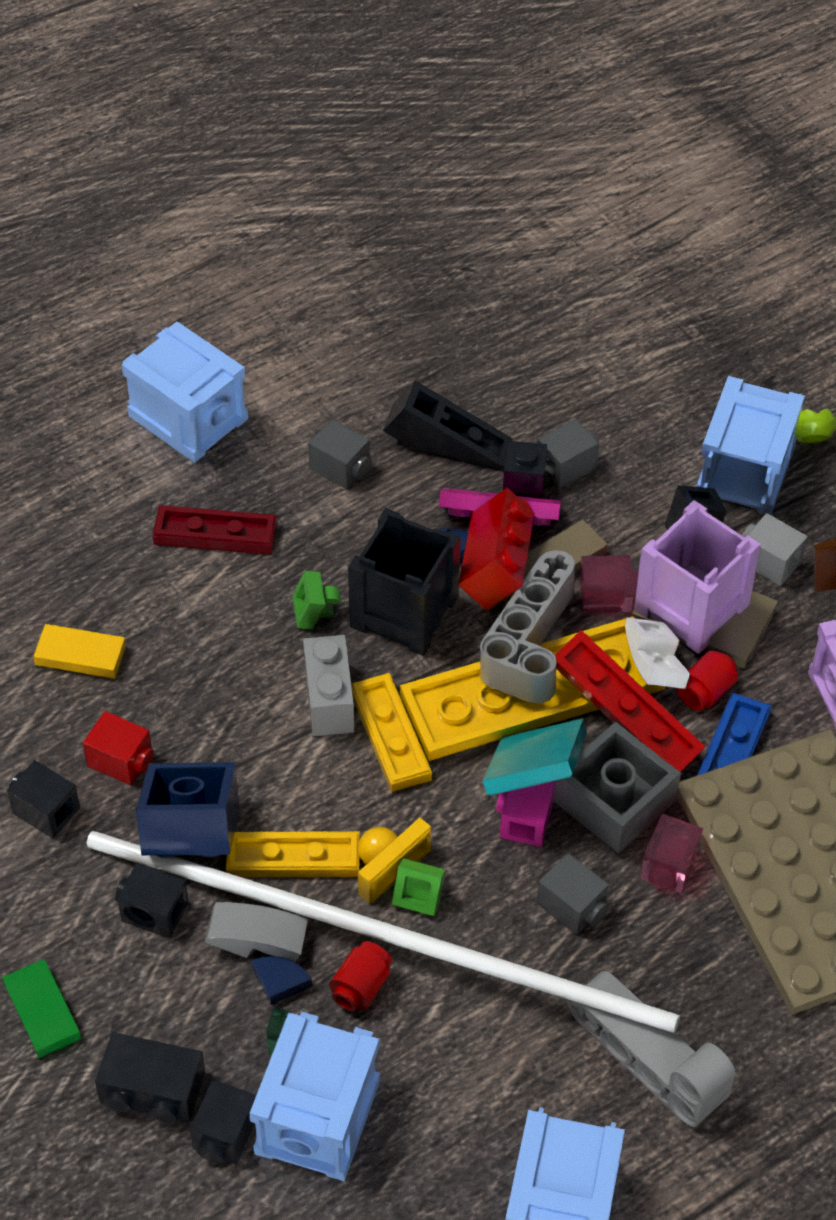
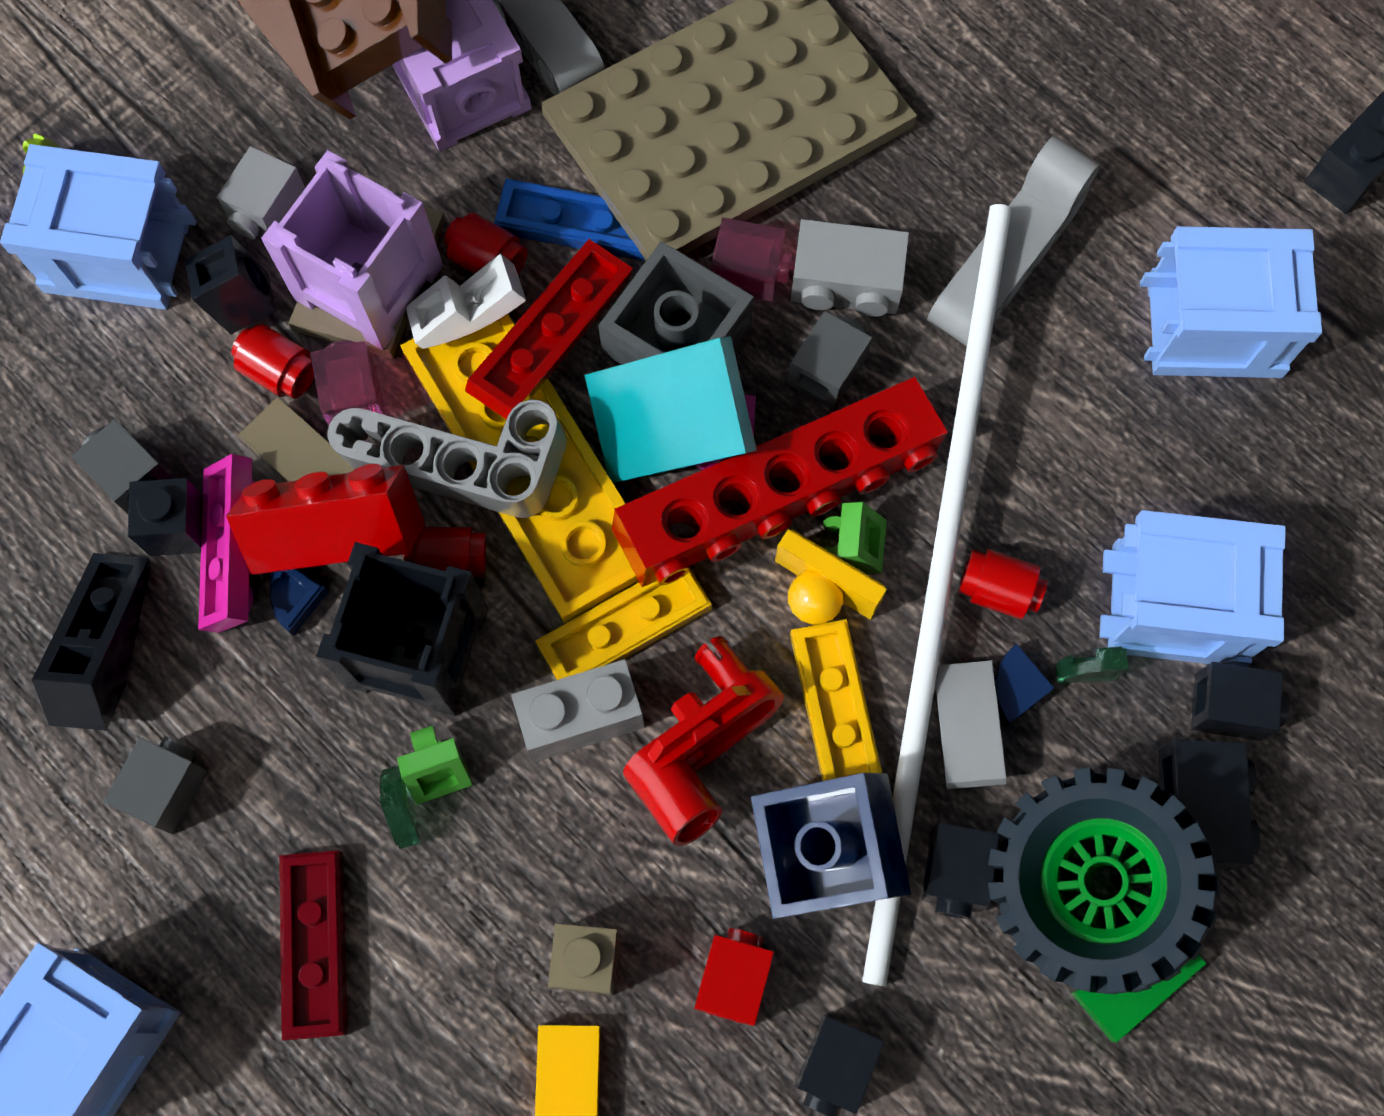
camera: 100 degrees left, 20 degrees up
(110, 968) = (1096, 809): none -> black wheel
(157, 664) = (584, 959): none -> dark tan brick
(285, 579) = (398, 808): none -> clear green tile
(288, 745) = (666, 767): none -> red piece
(449, 733) = (896, 414): none -> red brick
(464, 628) = (451, 547): none -> red brick
(634, 537) = (273, 361): none -> red brick
(652, 924) = (849, 267): none -> light grey brick

